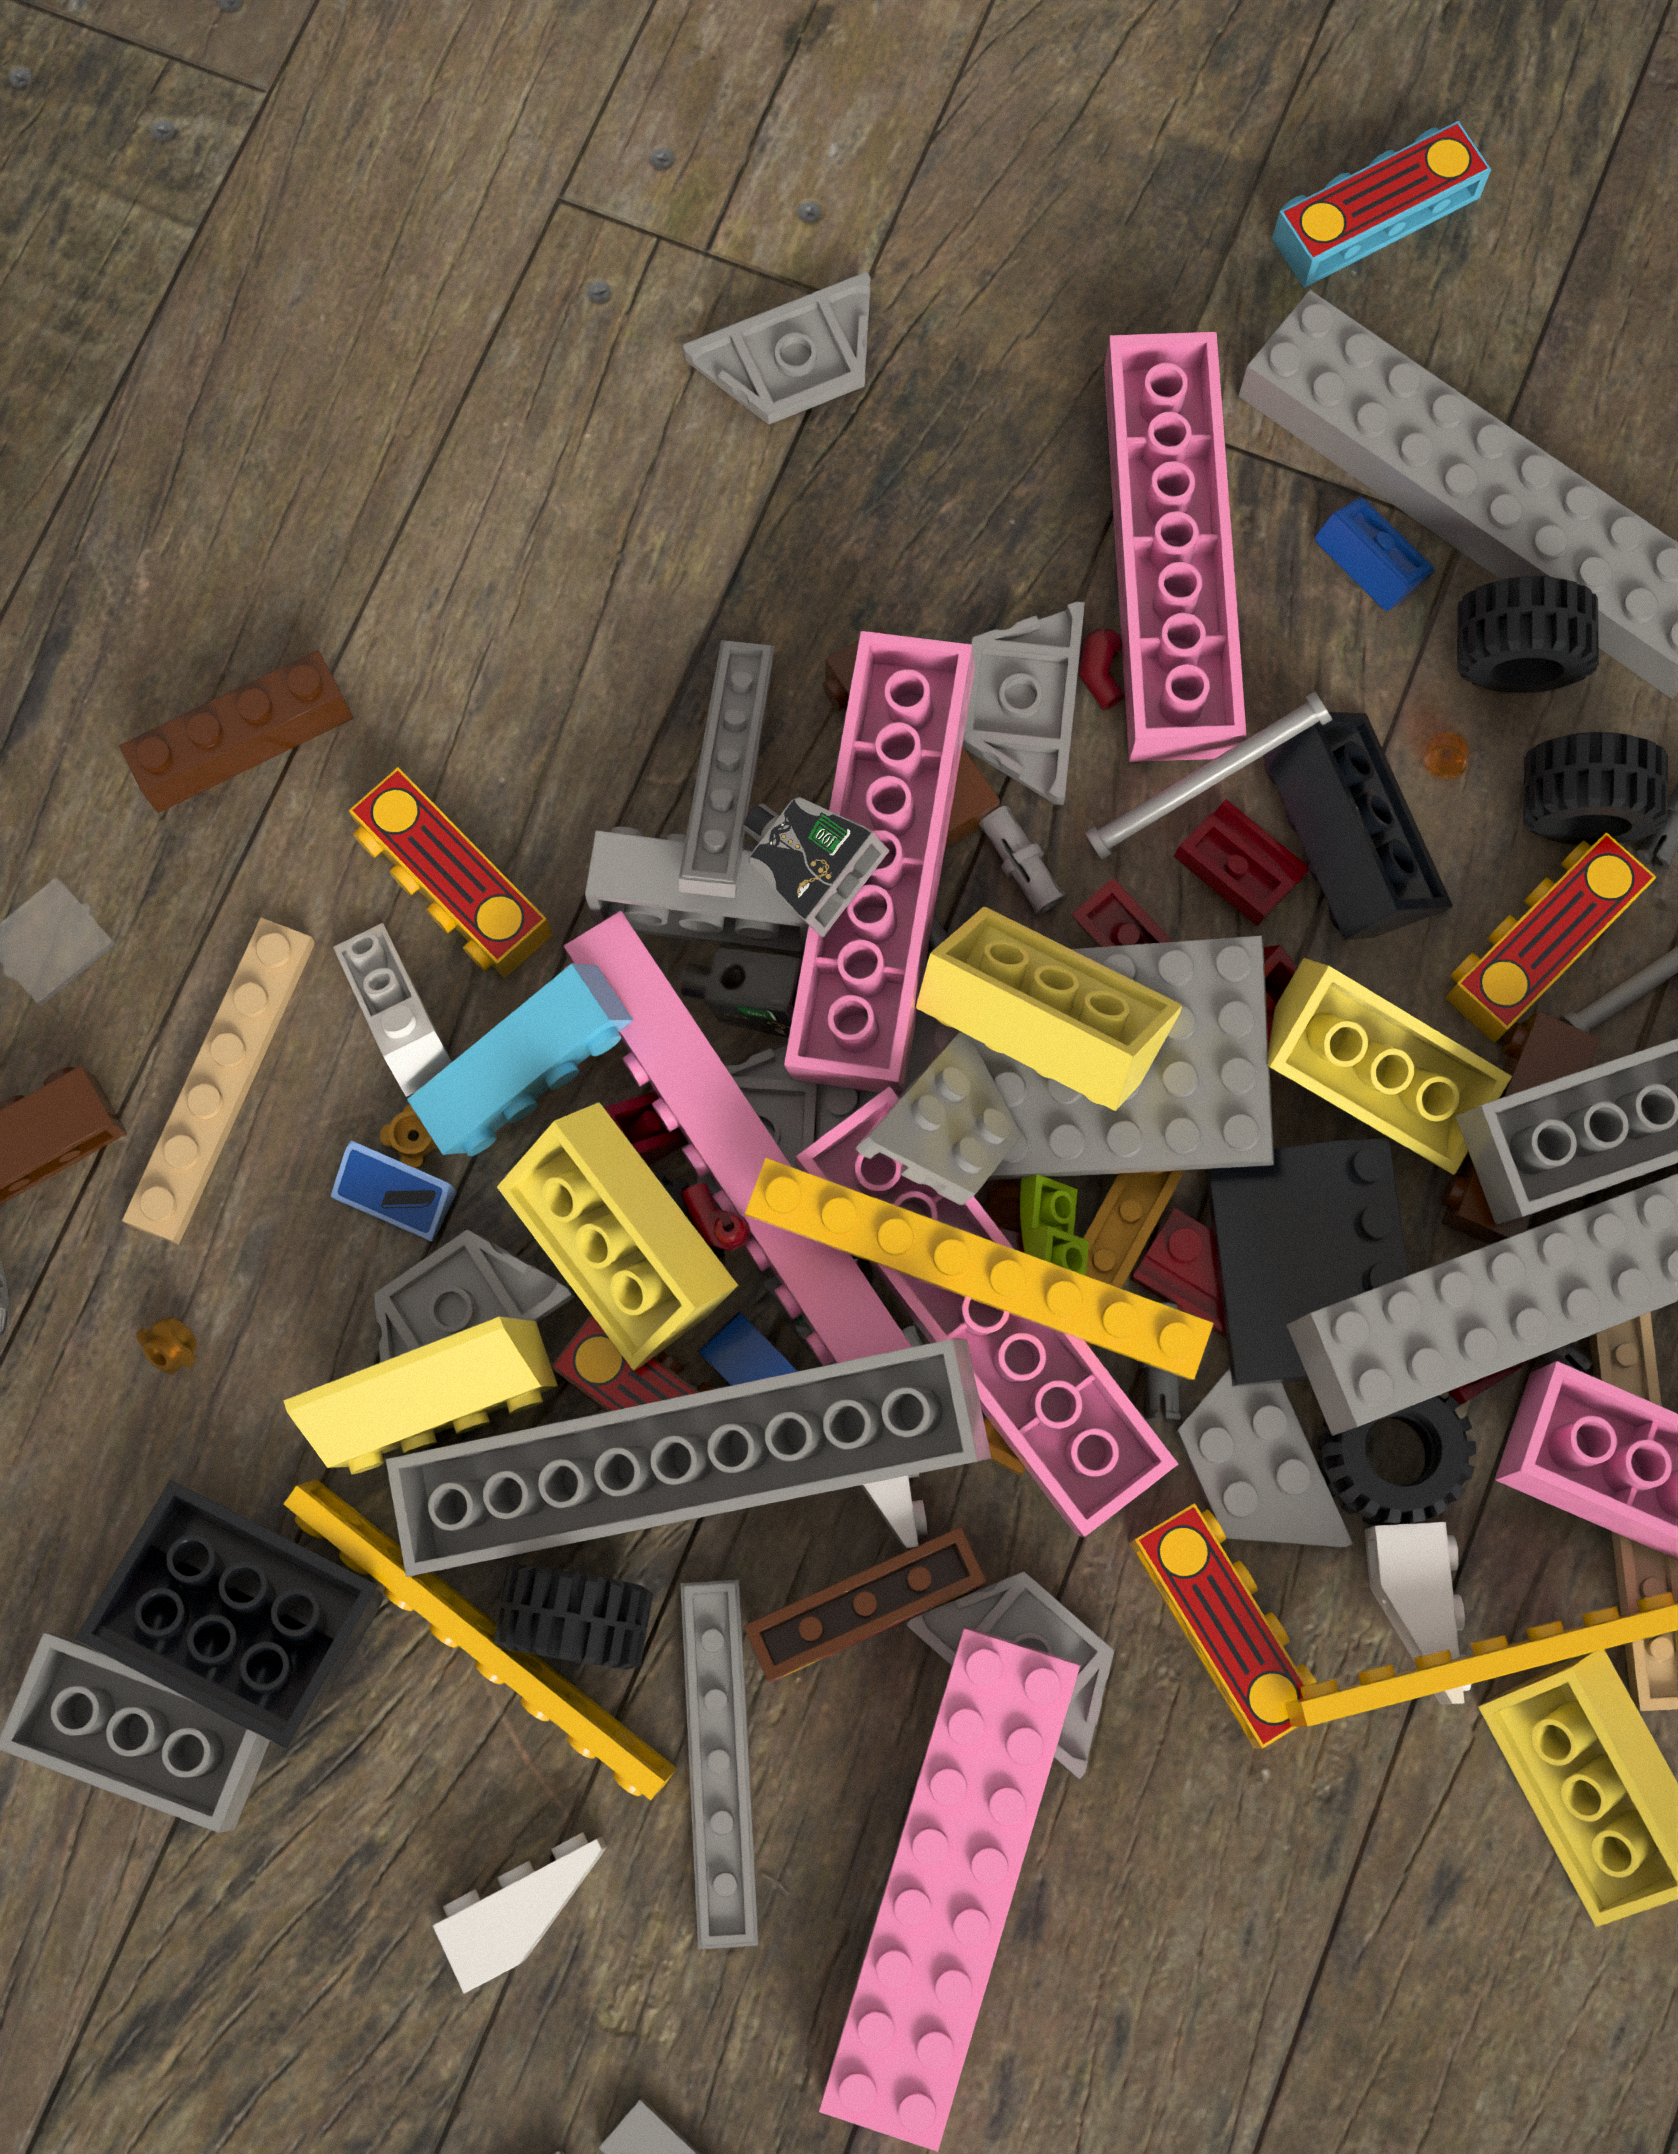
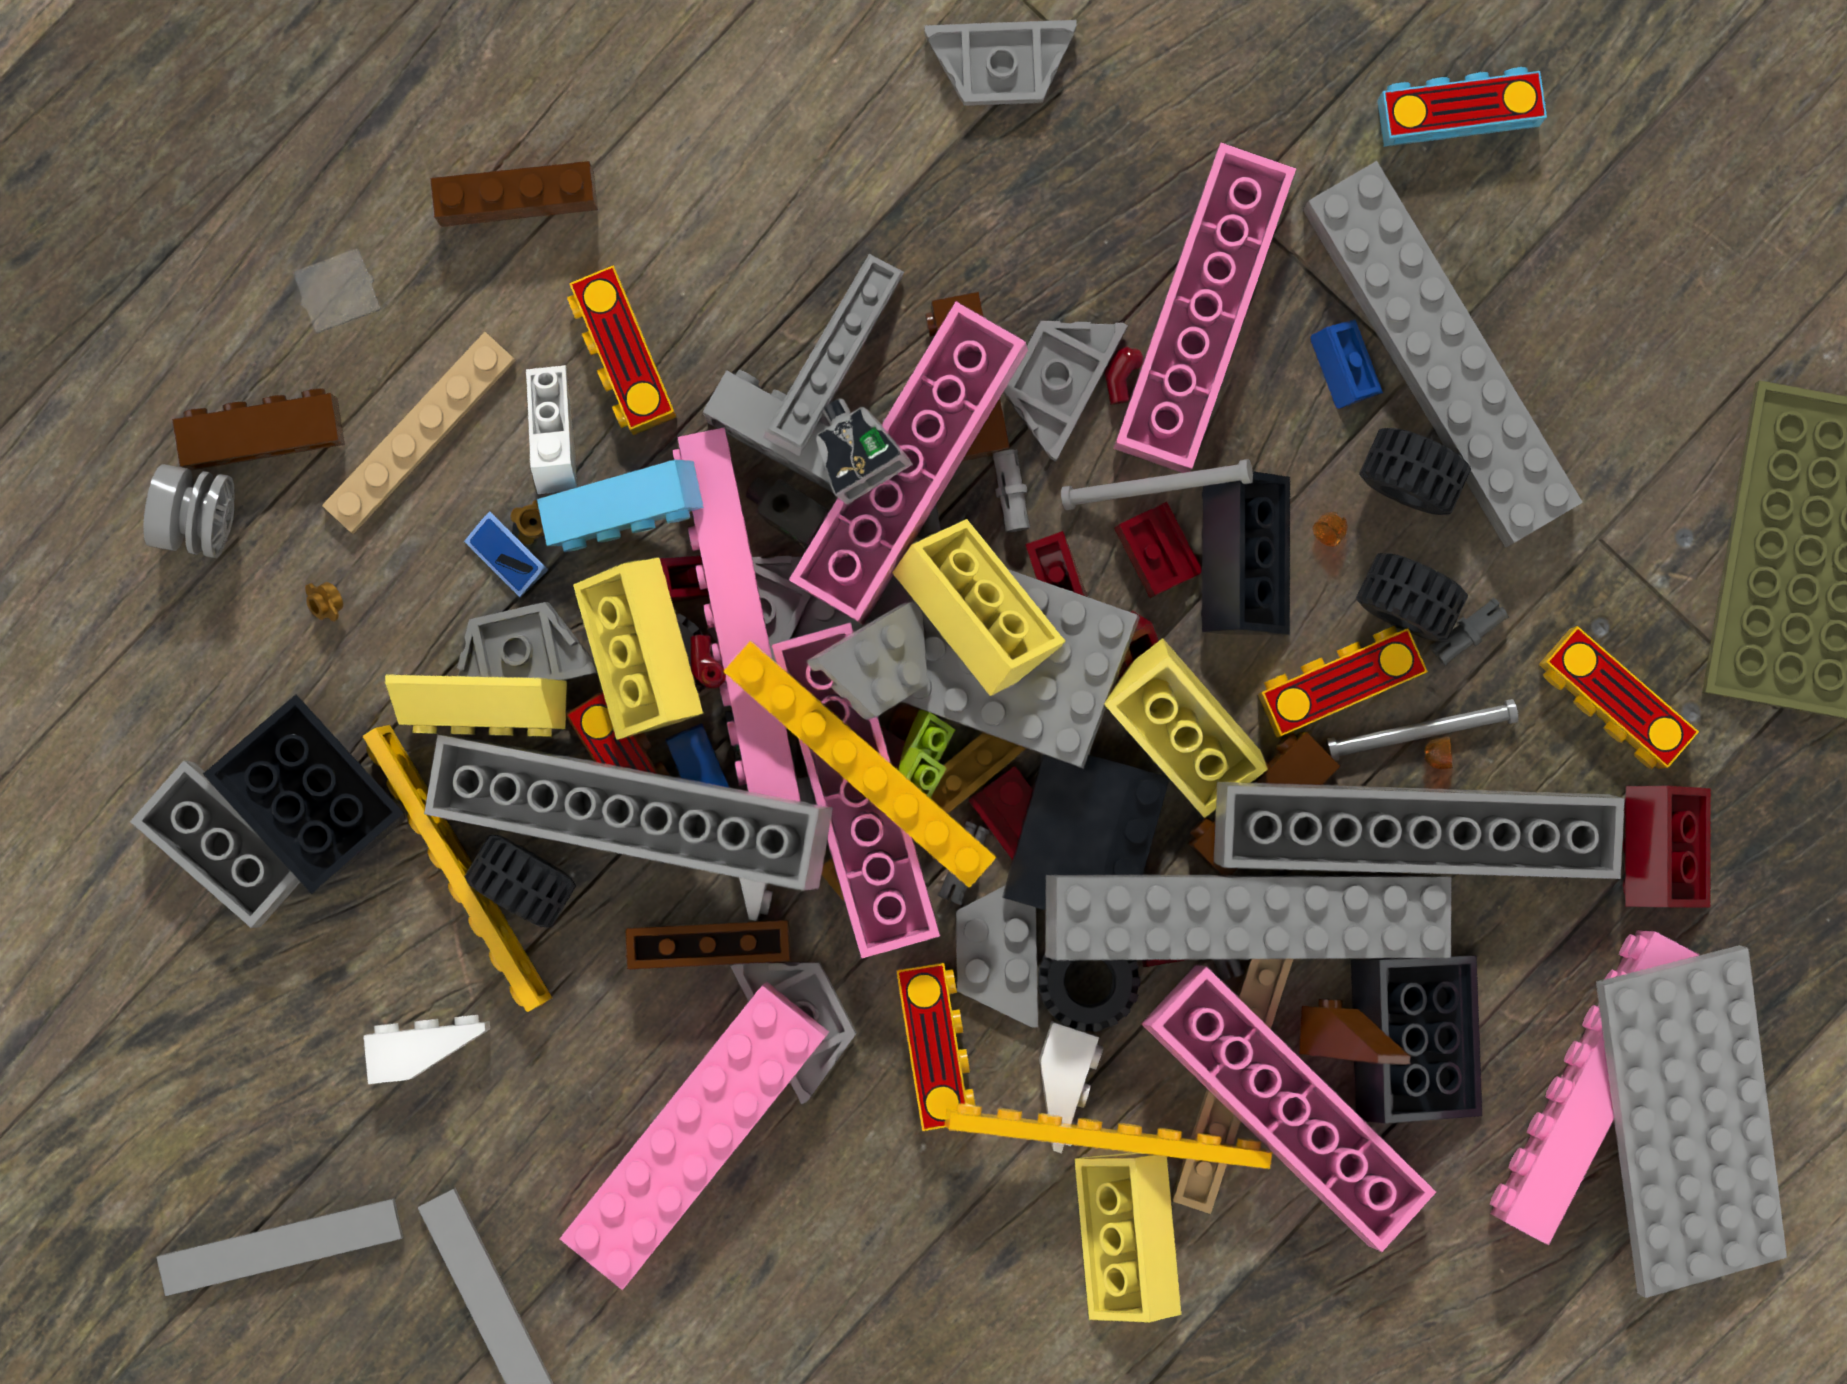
camera: 15 degrees right, 10 degrees up
(719, 1765) = (580, 1004): light grey tile -> none

